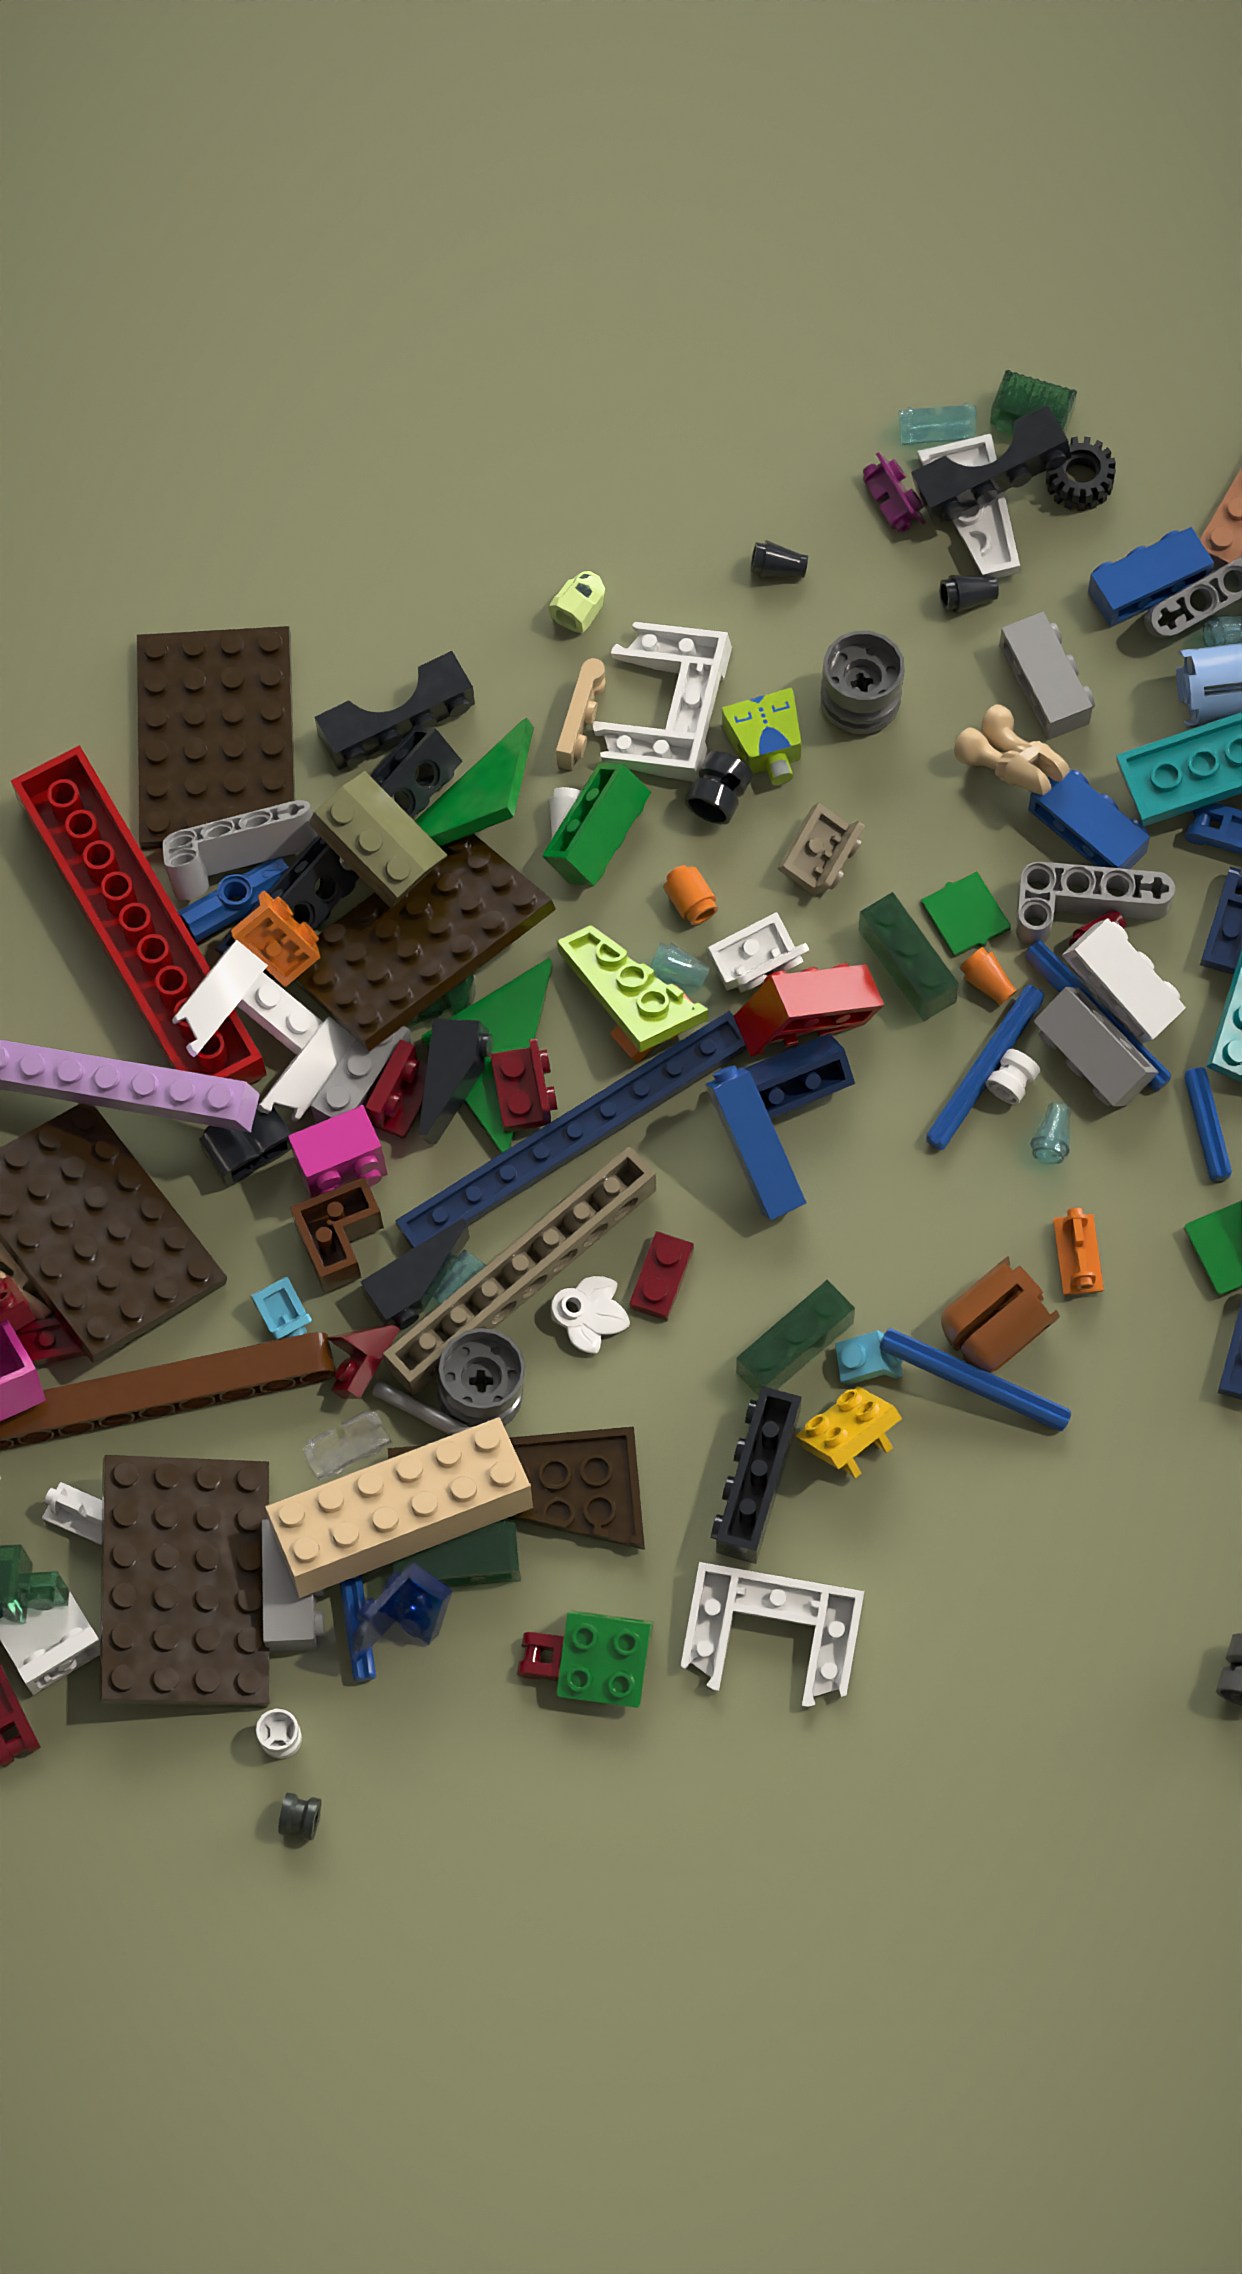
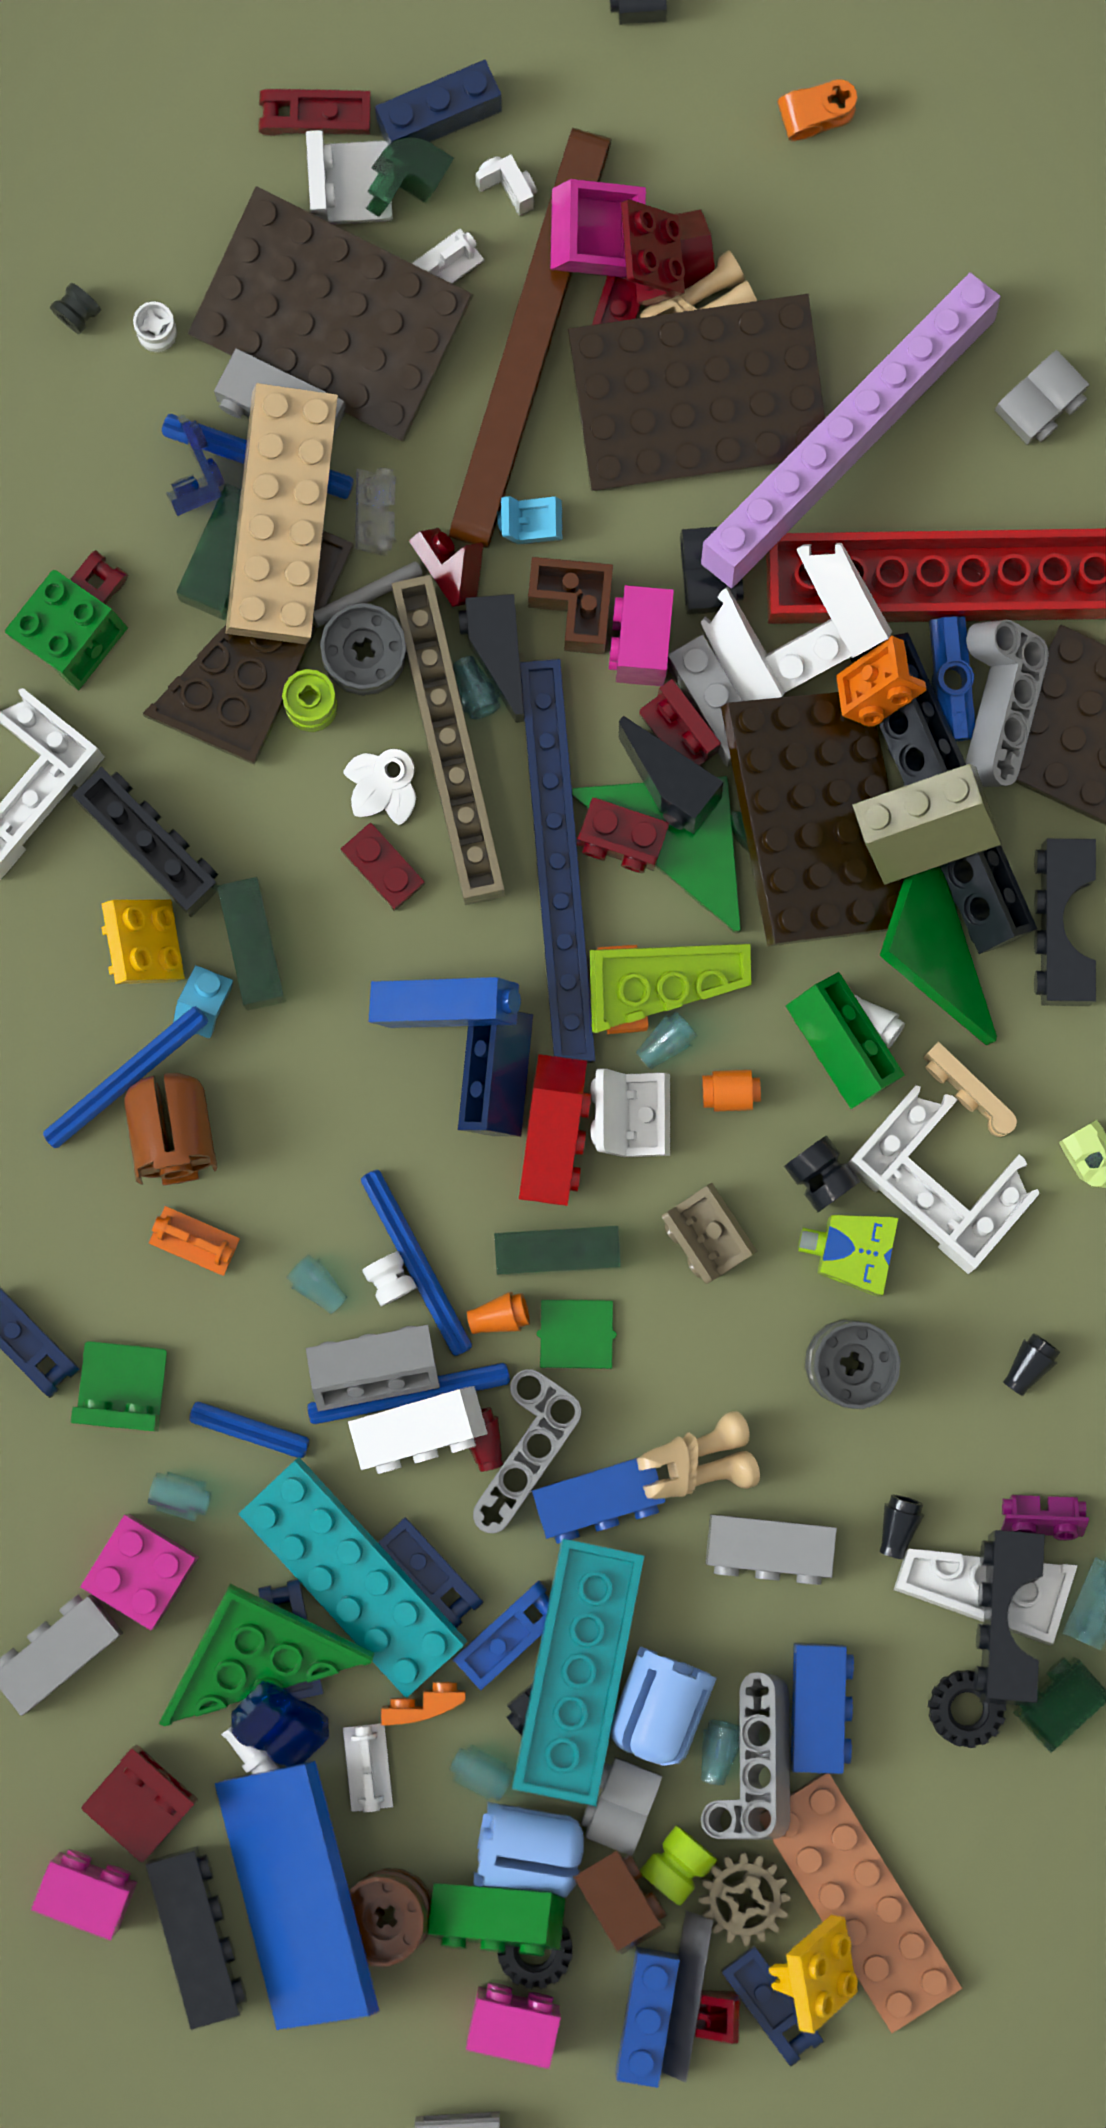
camera: 110 degrees right, 15 degrees up
(551, 1404) = (310, 700): none -> lime wheel

